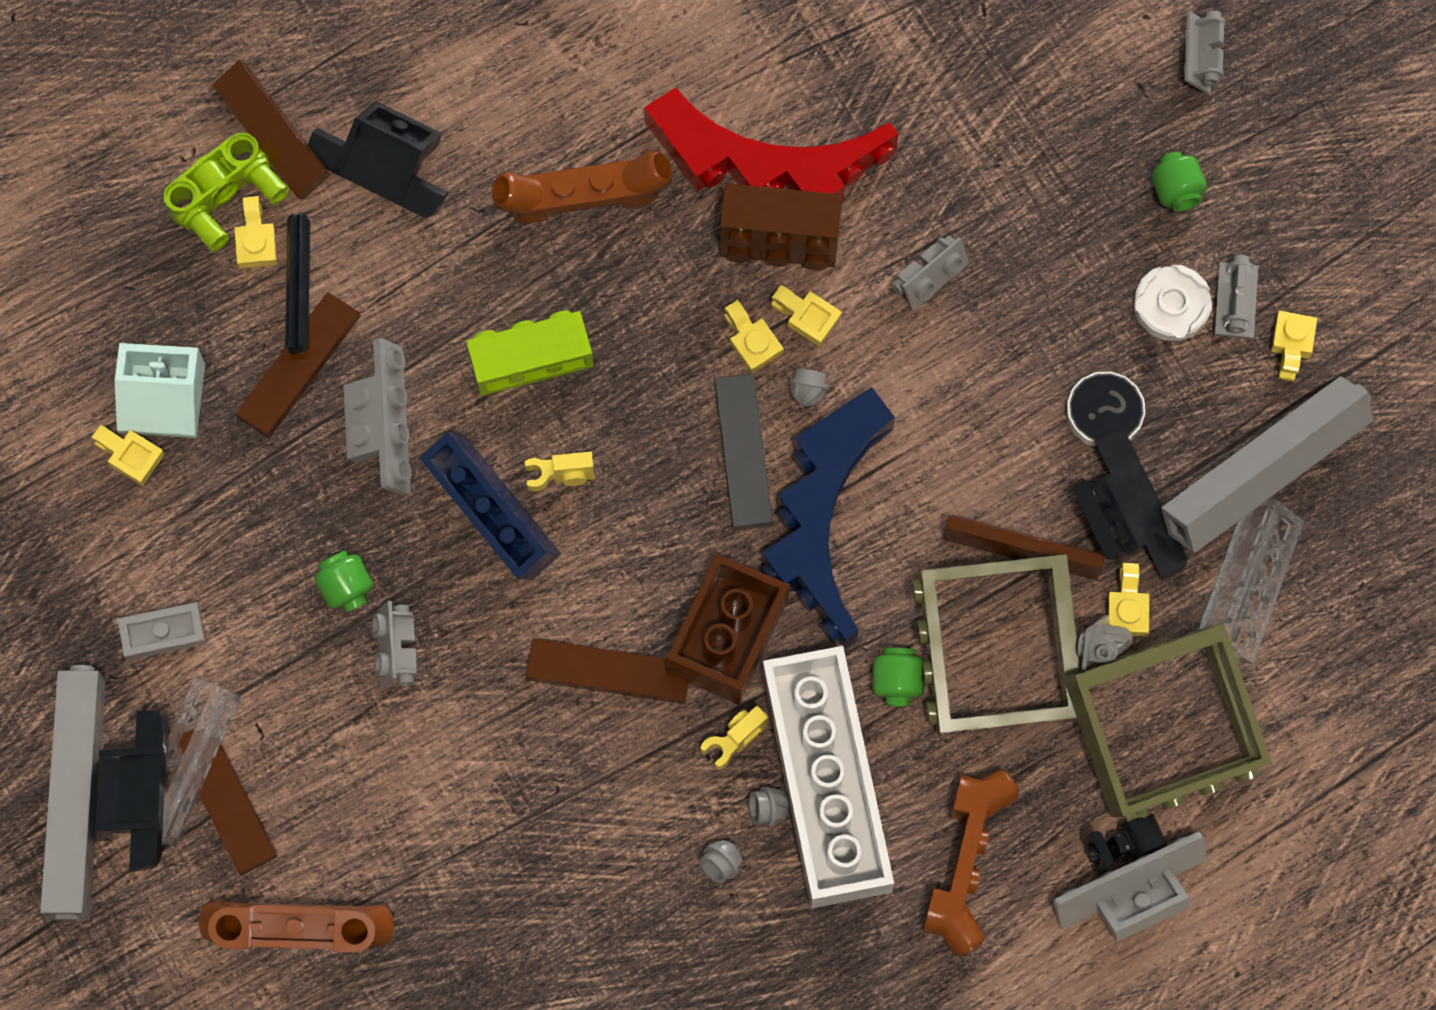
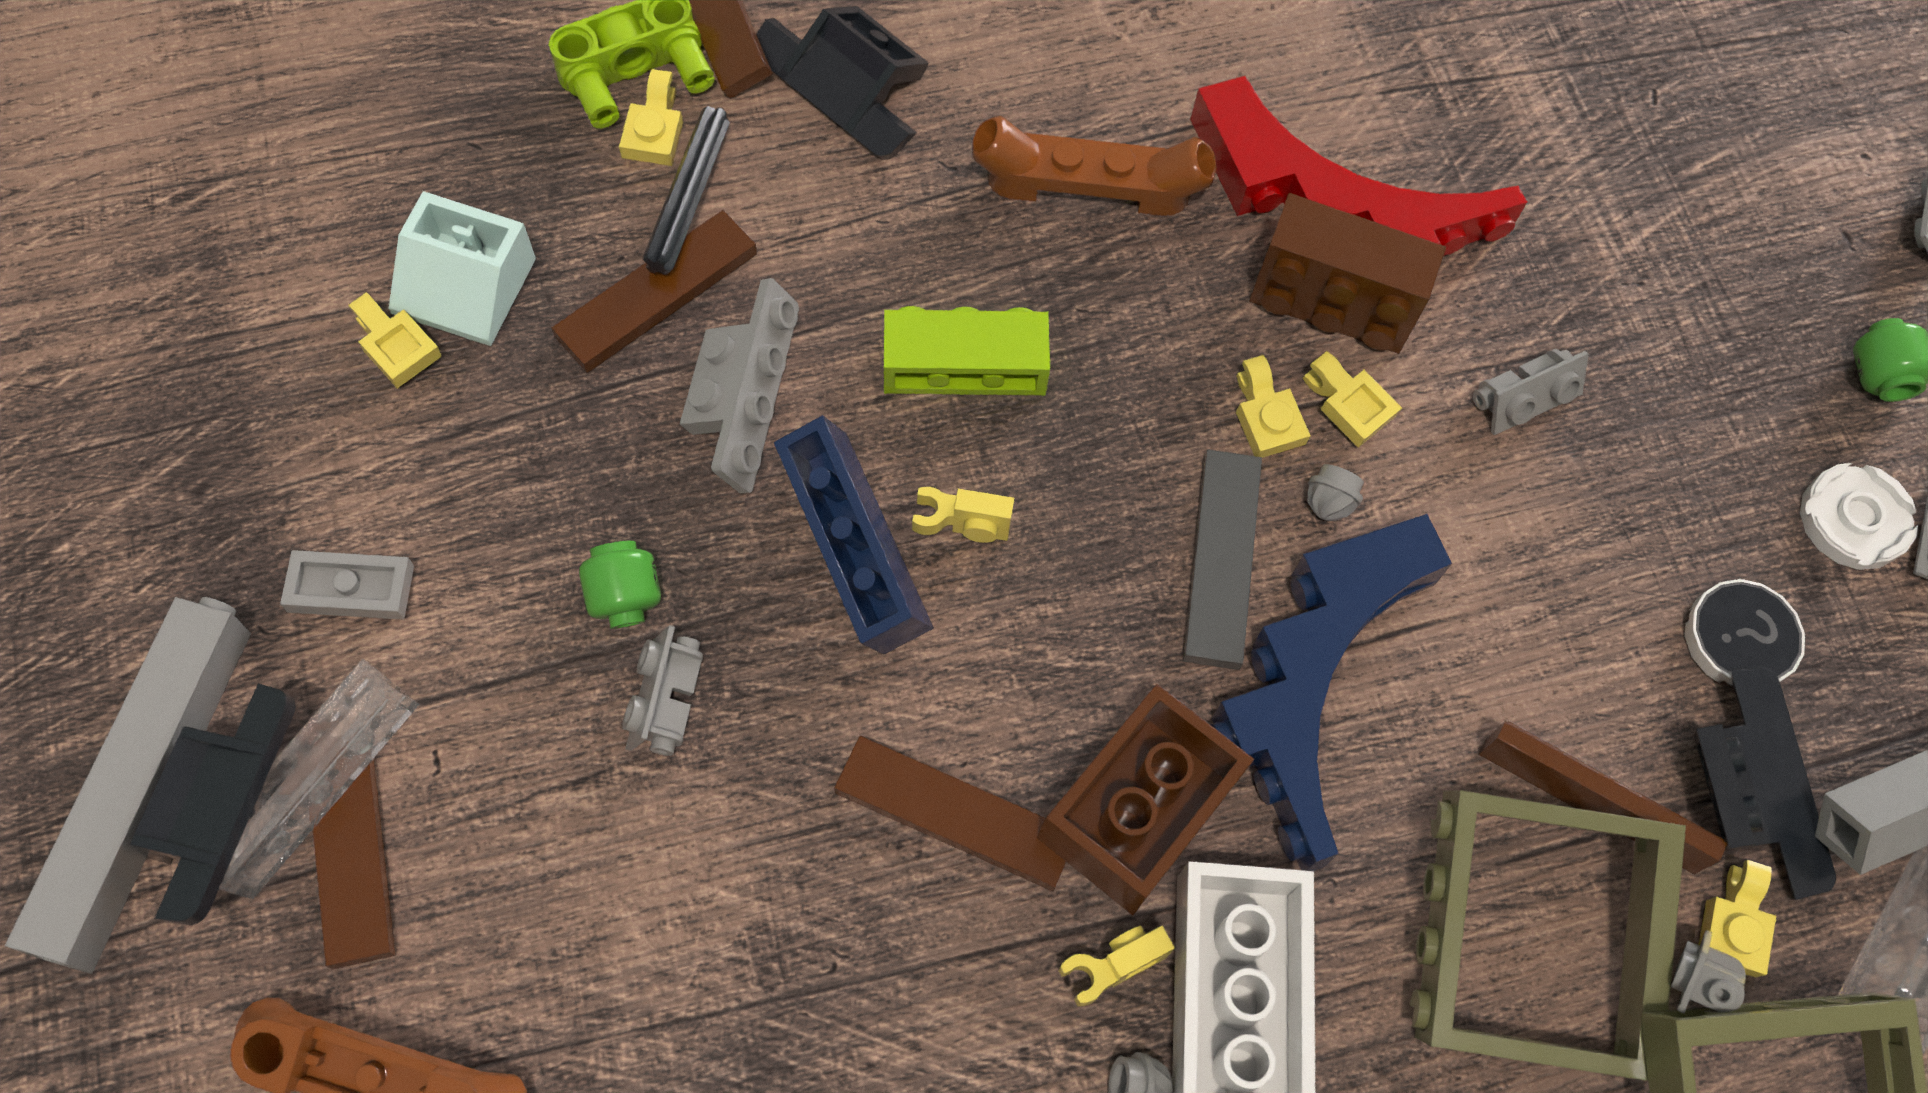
camera: 10 degrees right, 5 degrees down
(898, 676) = (1380, 938): bright green head -> none

